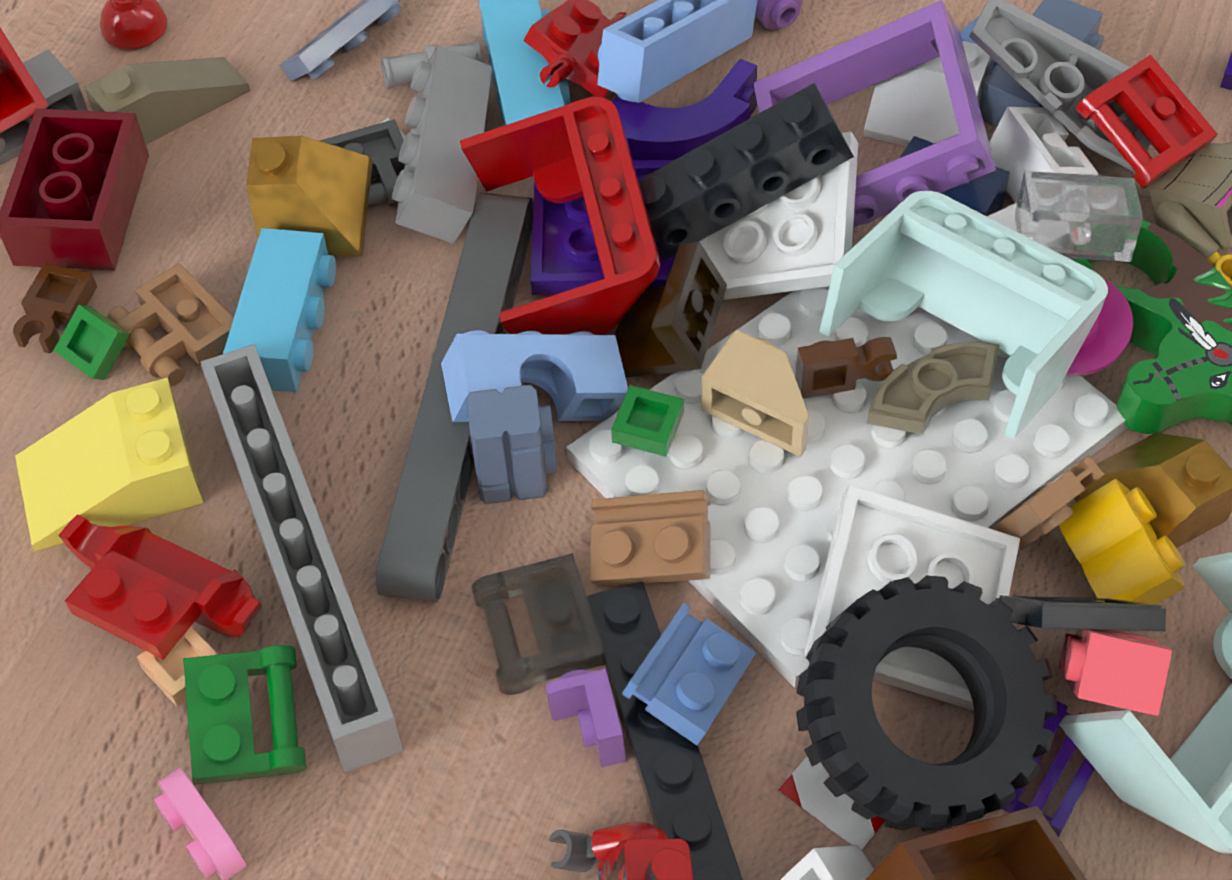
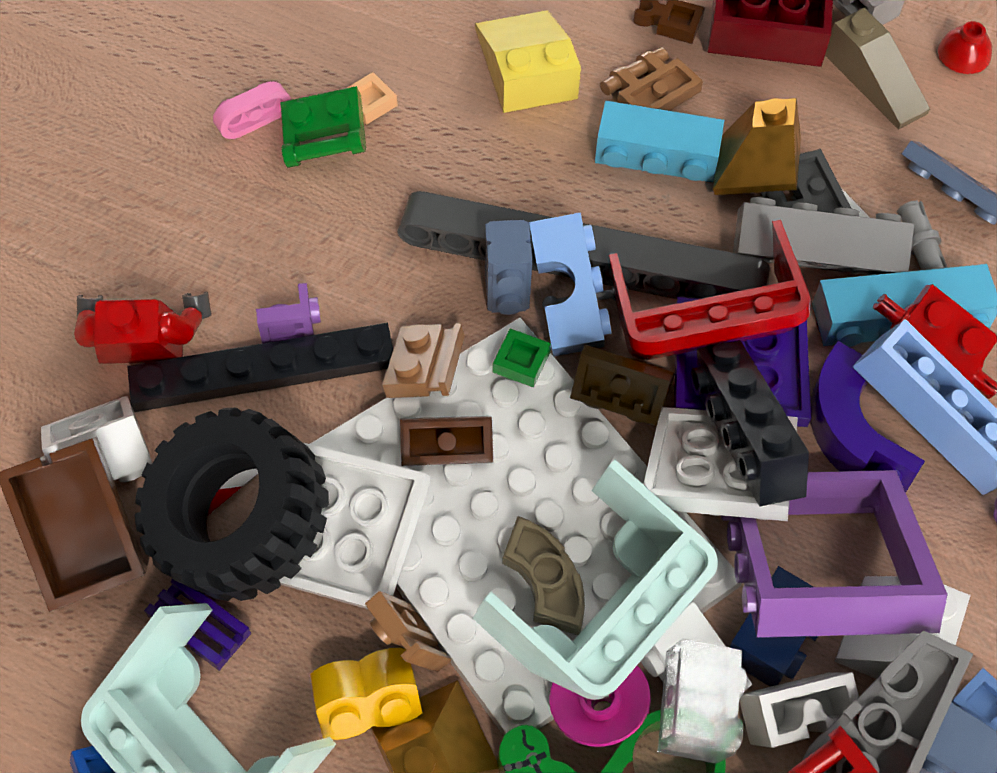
camera: 90 degrees right, 5 degrees up
(91, 342) = (634, 38): green plate -> none
(153, 588) = (427, 80): red plate -> none
(302, 561) = (438, 148): light grey brick -> none
(557, 616) = (373, 303): clear smoke plate -> none
(690, 674) = (307, 376): medium blue plate -> none
(757, 392) = (540, 434): tan slope -> none
(765, 501) = (446, 440): none -> reddish brown slope
(836, 365) = (562, 489): reddish brown plate -> none
(1085, 613) = (278, 618): black tile -> none
(1116, 668) = (211, 620): coral arch -> none

